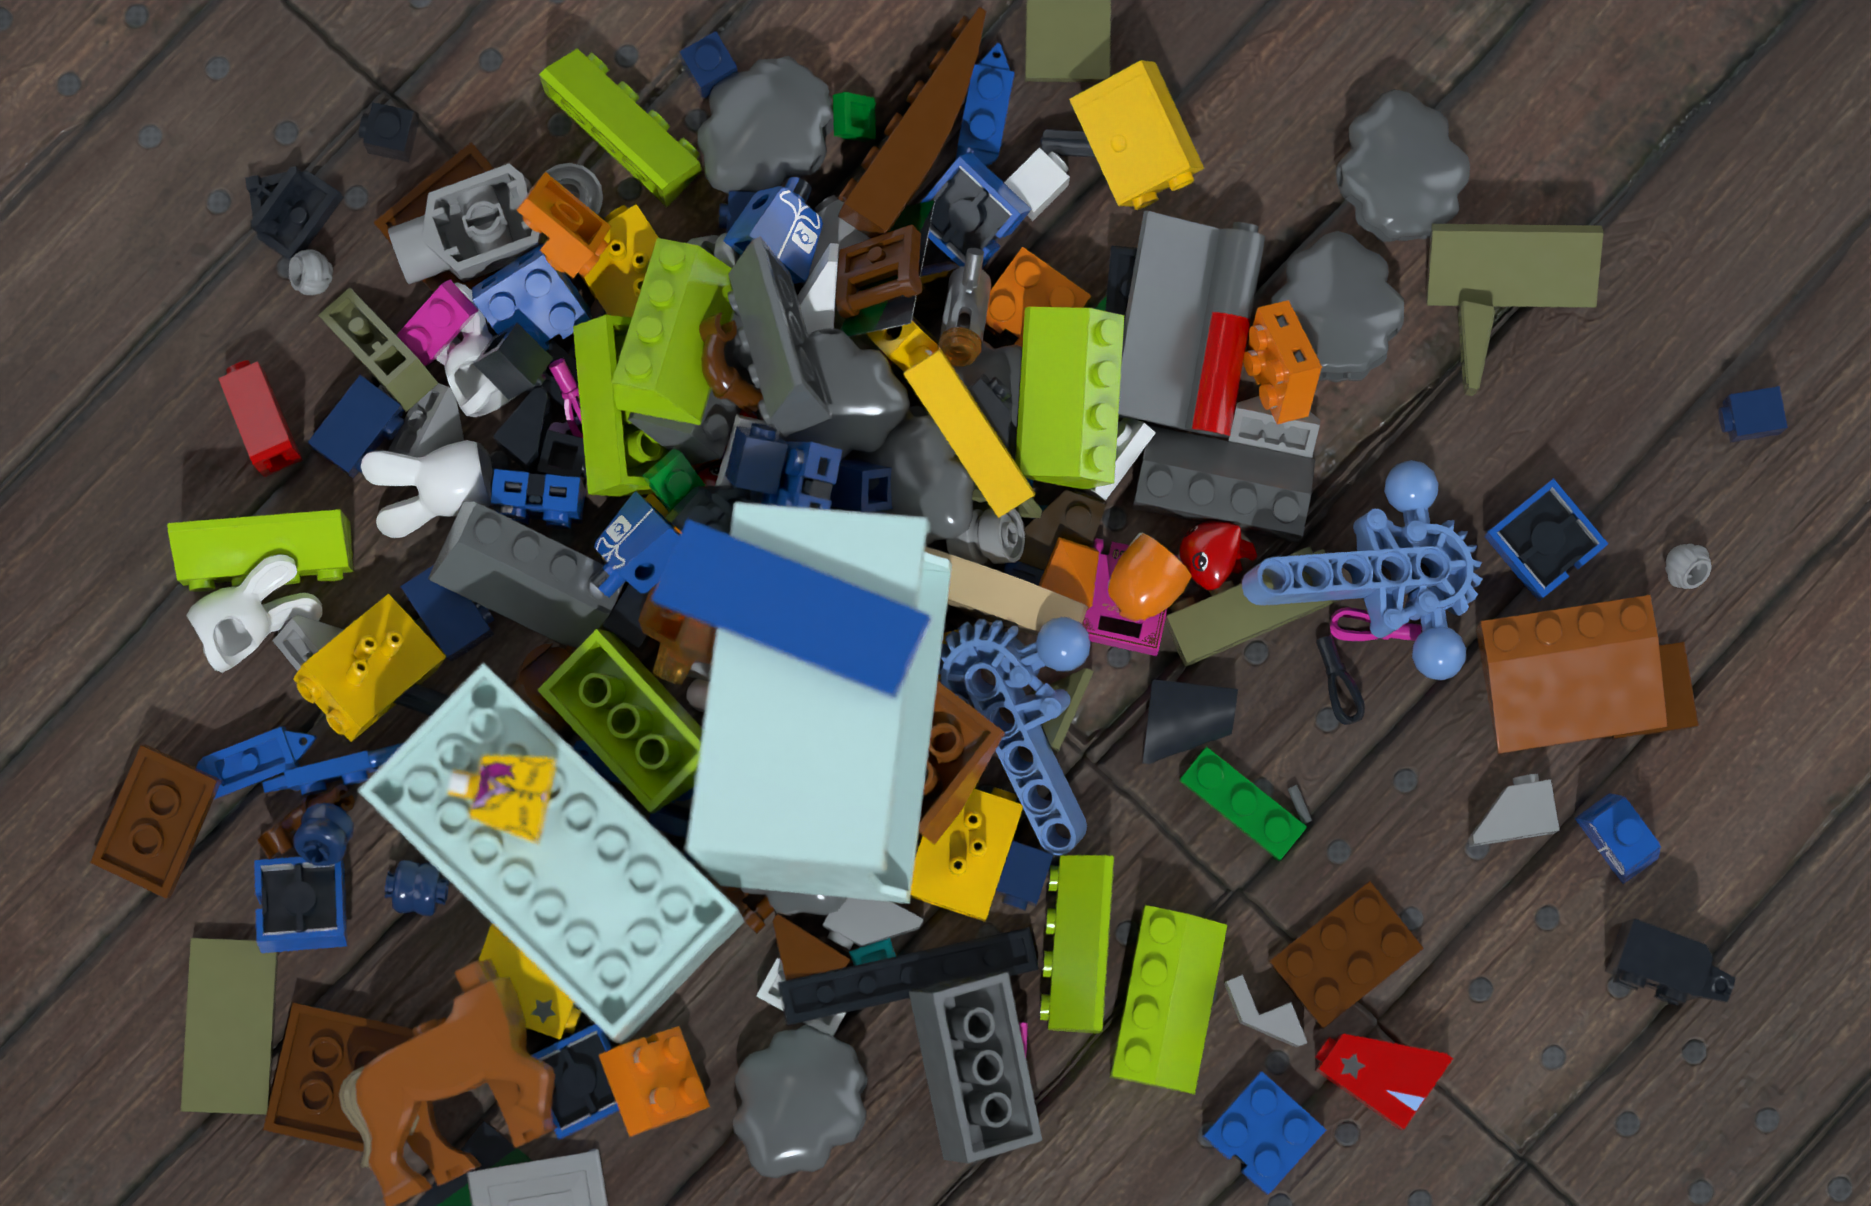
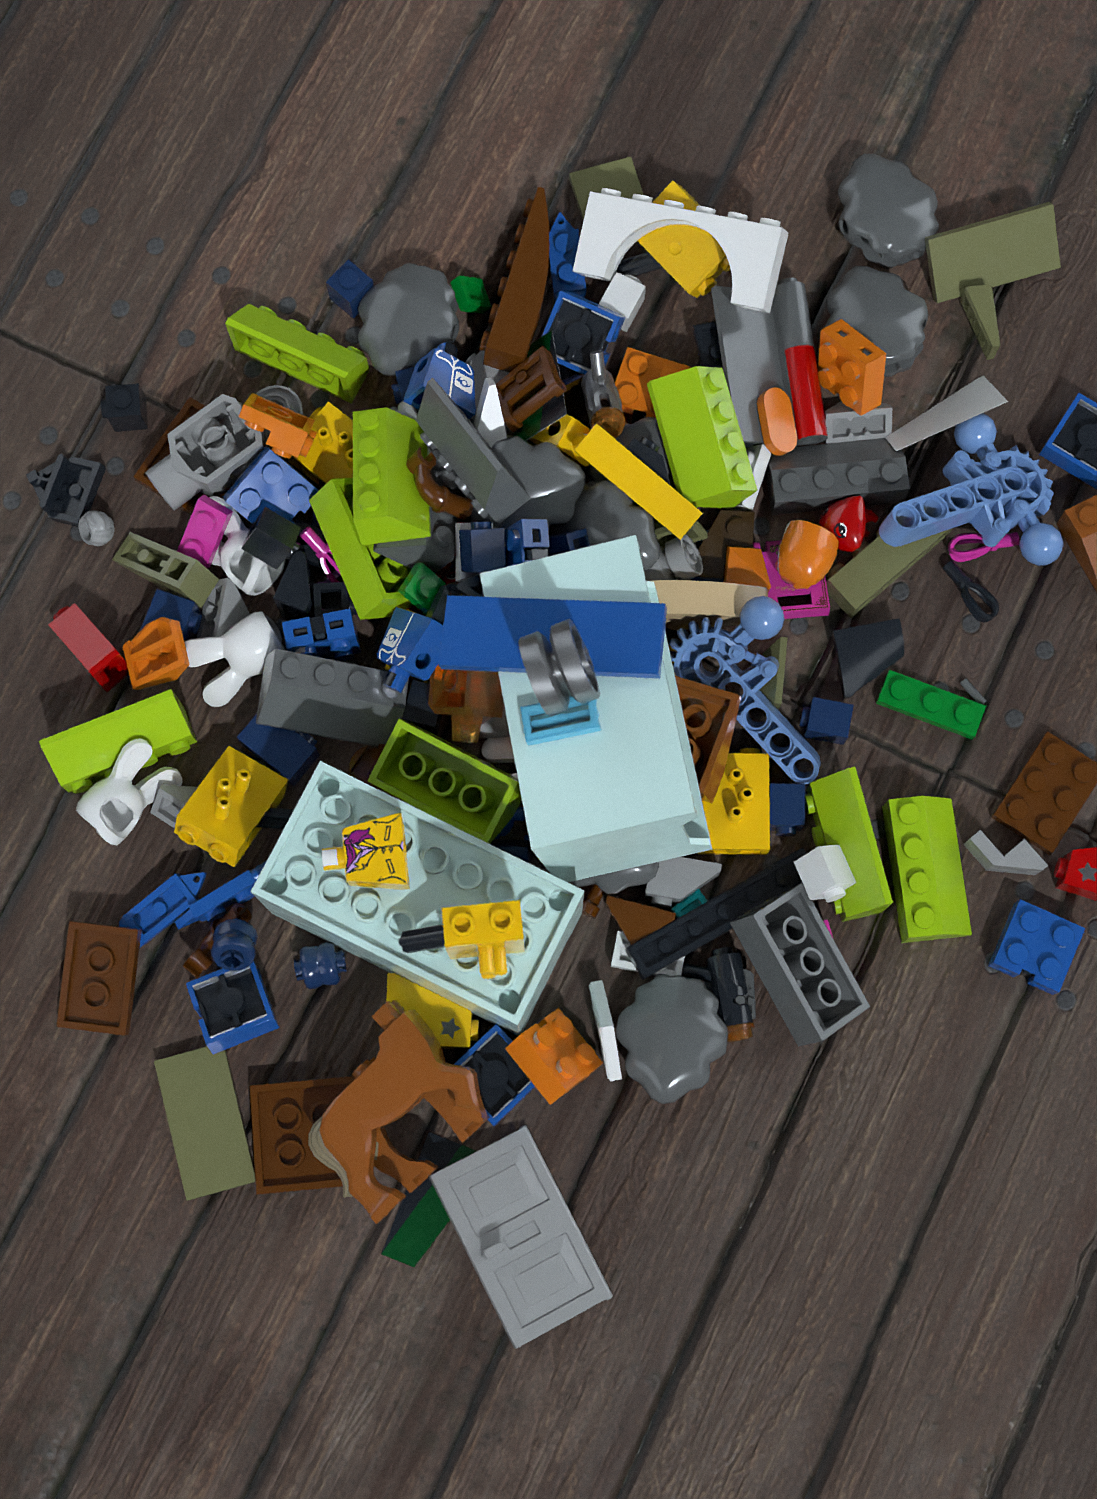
camera: 15 degrees left, 5 degrees down
(335, 456) = (156, 654): none -> orange slope
(593, 921) = (473, 931): none -> yellow piece
(723, 1069) = (605, 1030): none -> white tile
(780, 656) = (559, 667): none -> flat silver wheel
(806, 713) = (560, 732): none -> medium azure tile
(888, 1069) = (732, 987): none -> black piece
(1039, 969) = (825, 873): none -> white brick
(1108, 784) = (826, 720): none -> dark blue brick
(1171, 400) = (777, 421): none -> orange tile
(1201, 182) = (618, 222): none -> white arch
(1405, 449) = (964, 404): none -> white sticker

